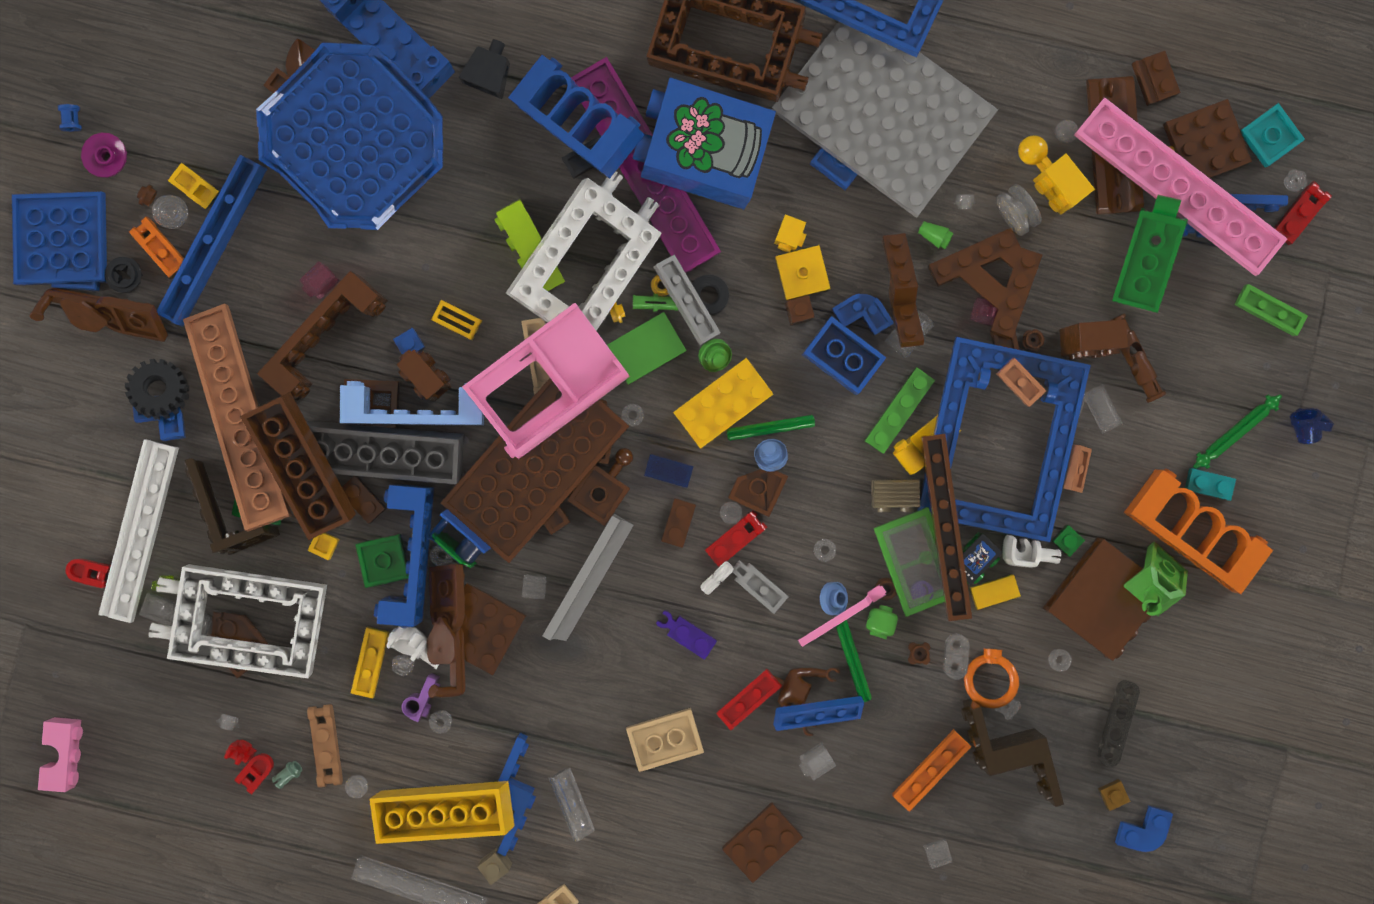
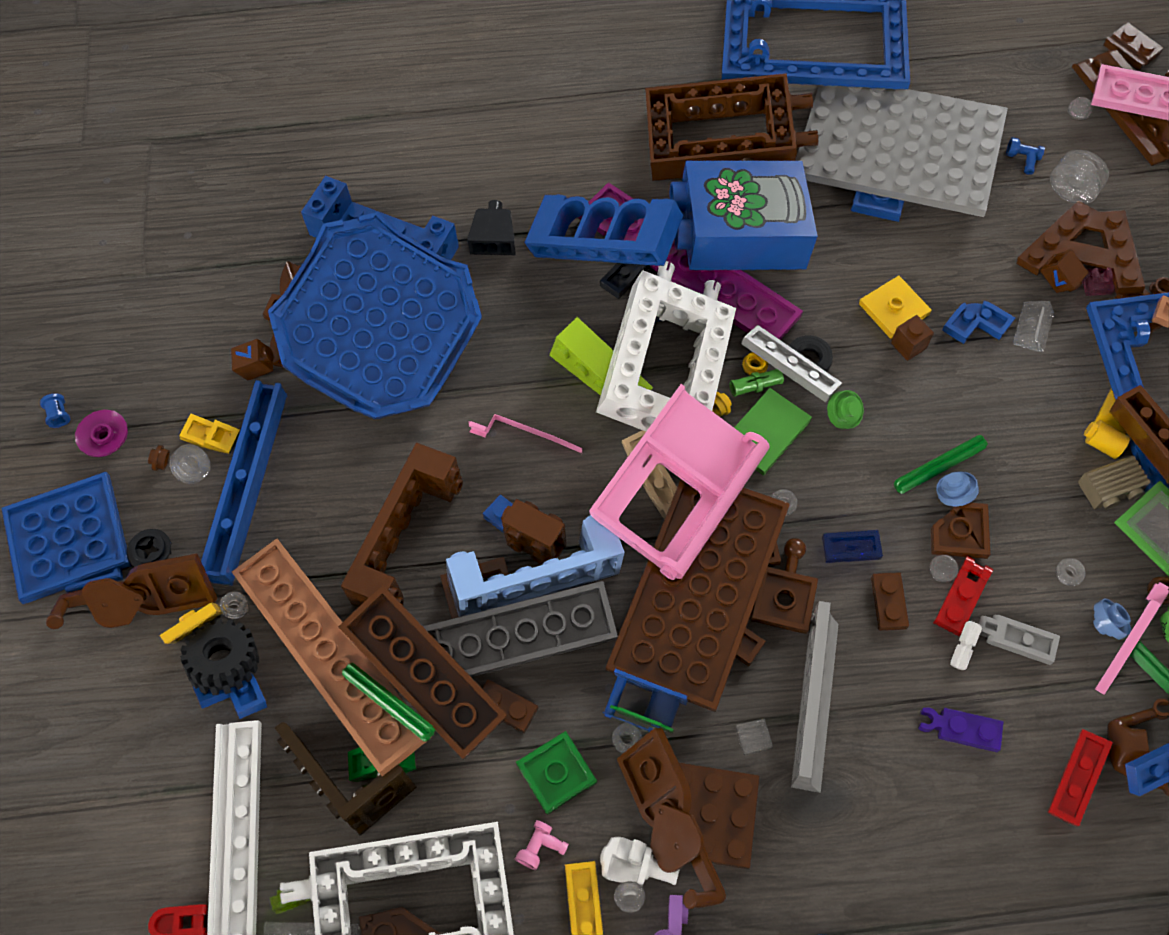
camera: 15 degrees left, 25 degrees down
(140, 355) = (189, 622): none -> yellow plate
(158, 247) = (183, 507): orange plate -> none
(179, 340) = (234, 598): none -> clear plate
(241, 129) = (252, 359): none -> reddish brown brick
(265, 480) = (388, 702): none -> green axle
(318, 280) = (378, 479): clear pink brick -> none
(324, 545) = (476, 776): yellow plate -> none
(356, 602) = (540, 837): none -> bright pink piece
(410, 608) = (571, 675): blue plate -> none
(418, 265) = (483, 430): none -> bright pink piece
(474, 328) = (565, 482): yellow tile -> none
(664, 739) = (1003, 872): tan plate -> none
(723, 403) = (878, 454): yellow brick -> none
(790, 234) = (865, 273): yellow brick -> none
(843, 356) = (982, 363): blue brick -> none
(899, 410) = (1067, 402): bright green plate -> none
(903, 290) = (1009, 282): reddish brown bracket -> none
(936, 234) = (1010, 229): bright green cone -> none
(957, 296) = (1064, 271): none -> reddish brown brick
(965, 201) = (1020, 192): clear plate -> none
(998, 162) = (1033, 153): none -> blue piece
(1059, 181) = (1107, 136): yellow brick -> none

